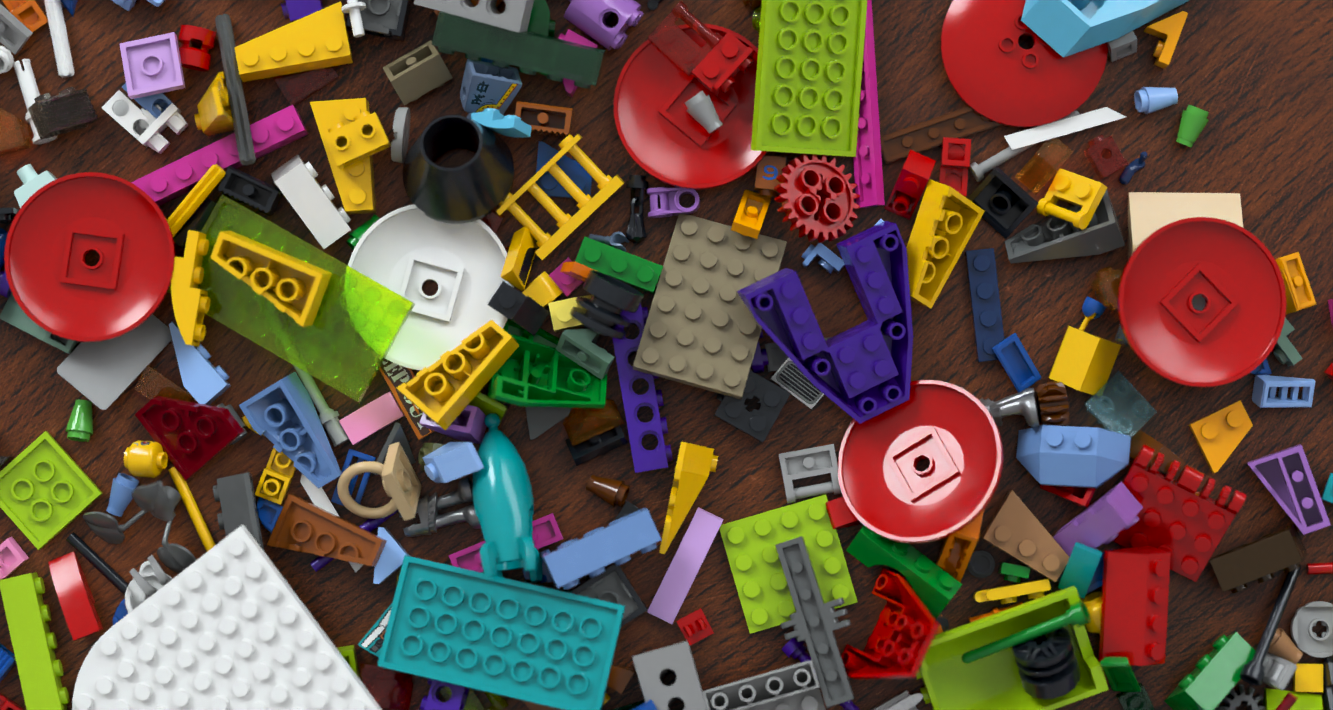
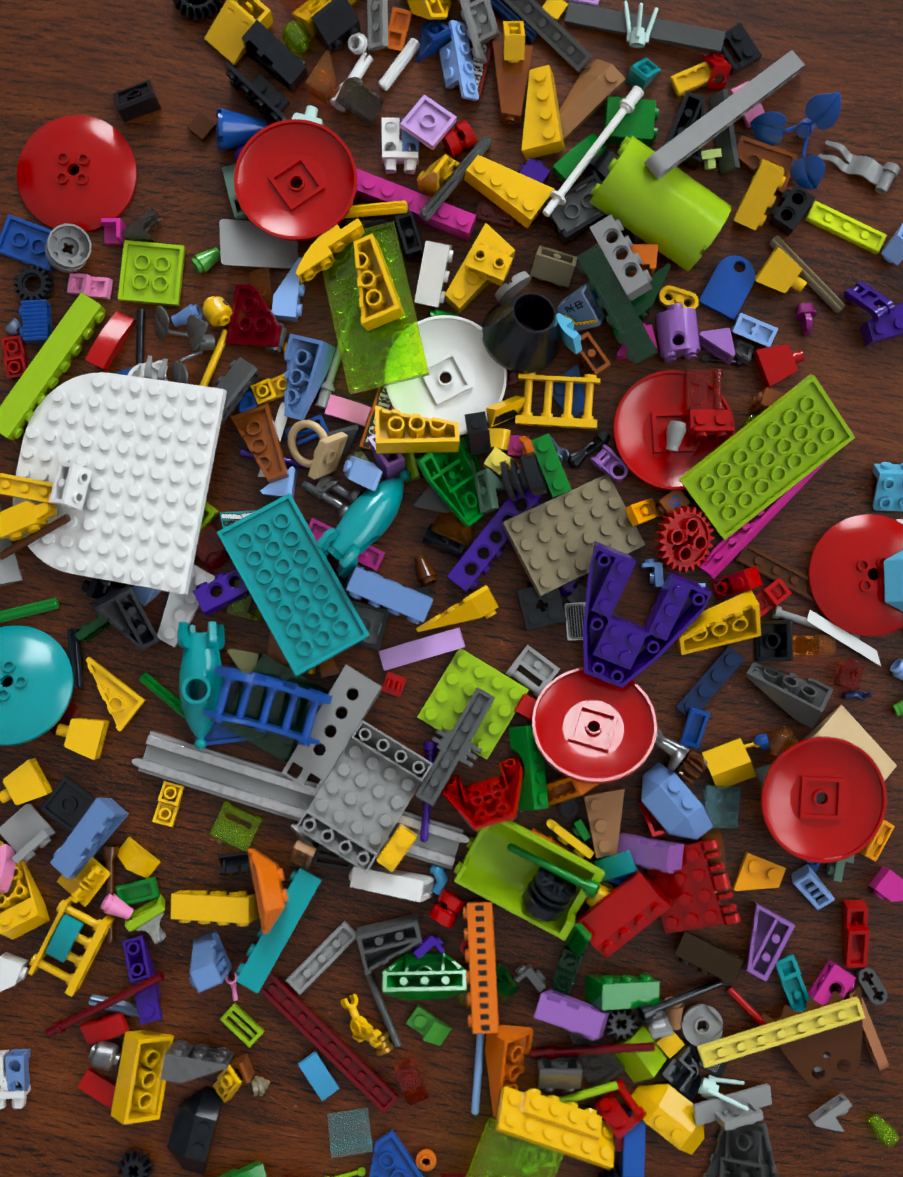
camera: 45 degrees right, 0 degrees up
(1074, 190) = (817, 675): yellow plate -> none

